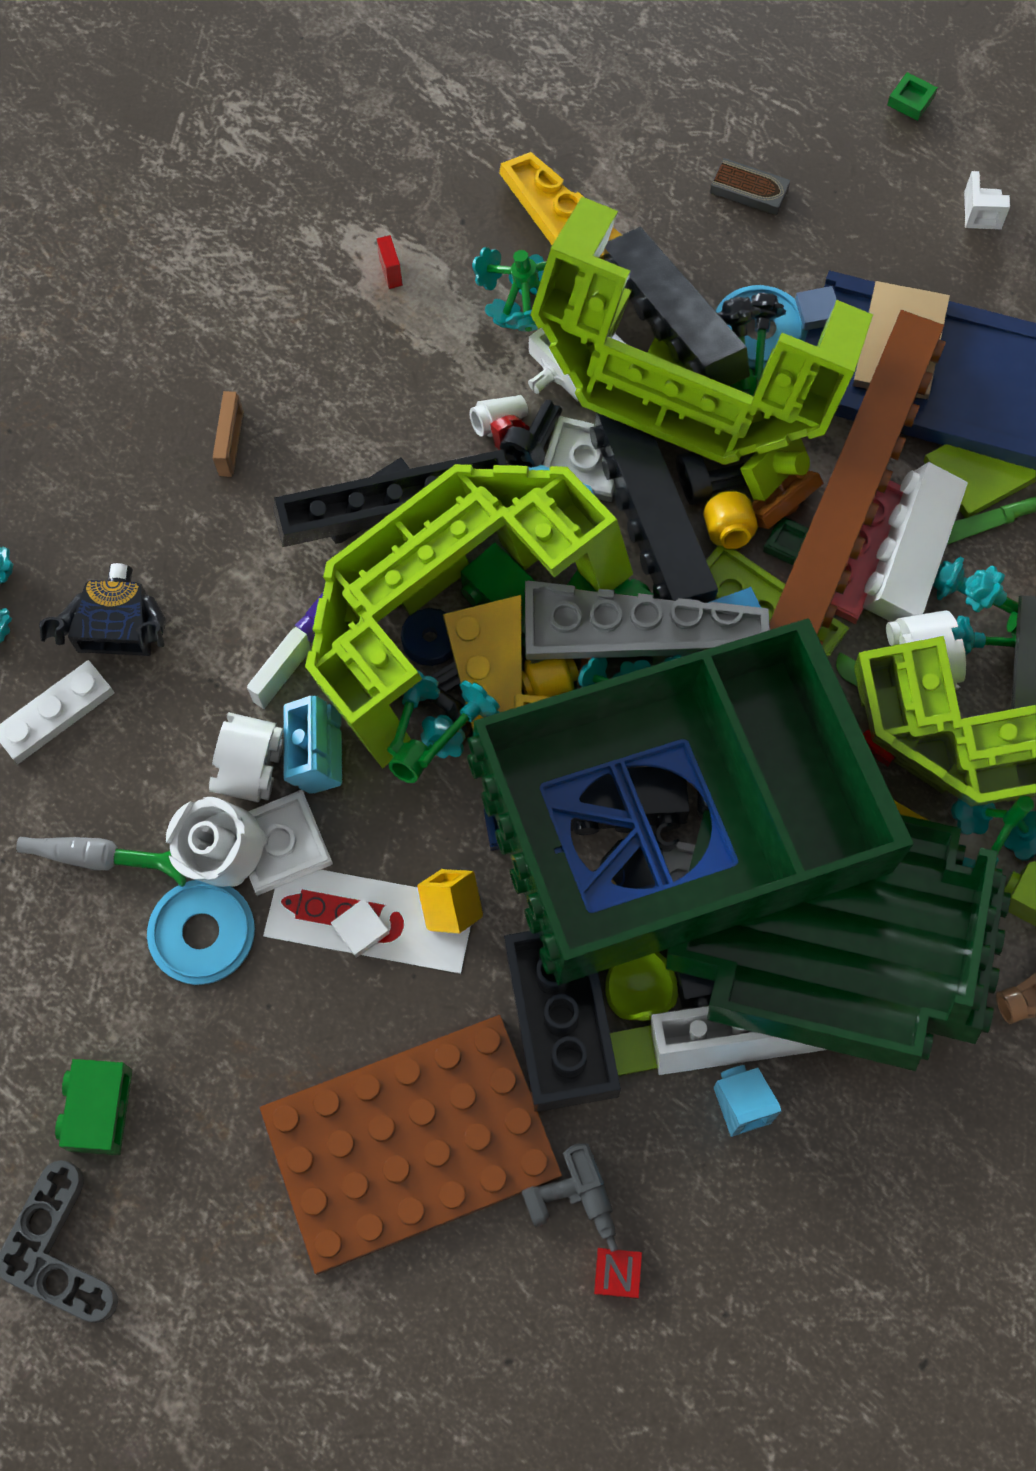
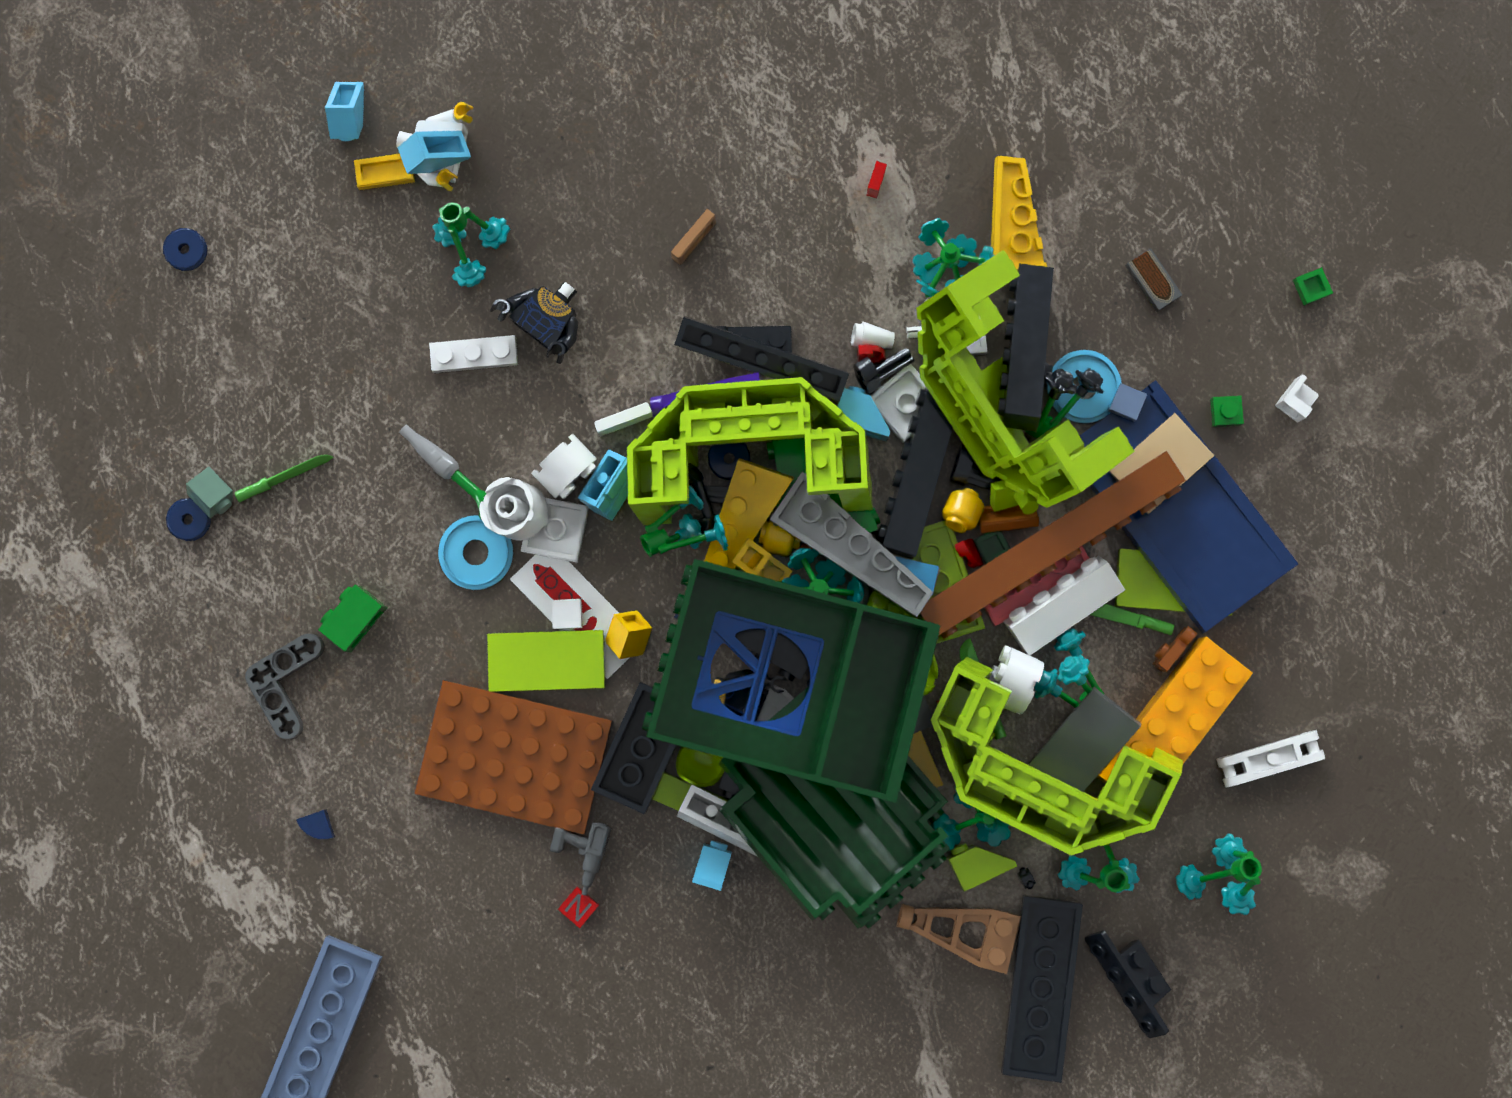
camera: 35 degrees right, 15 degrees up
(212, 1405) = (317, 825): none -> dark blue tile
(371, 999) = (546, 660): none -> lime tile
(771, 562) = (968, 549): none -> red tile
(923, 259) = (1227, 411): none -> green plate

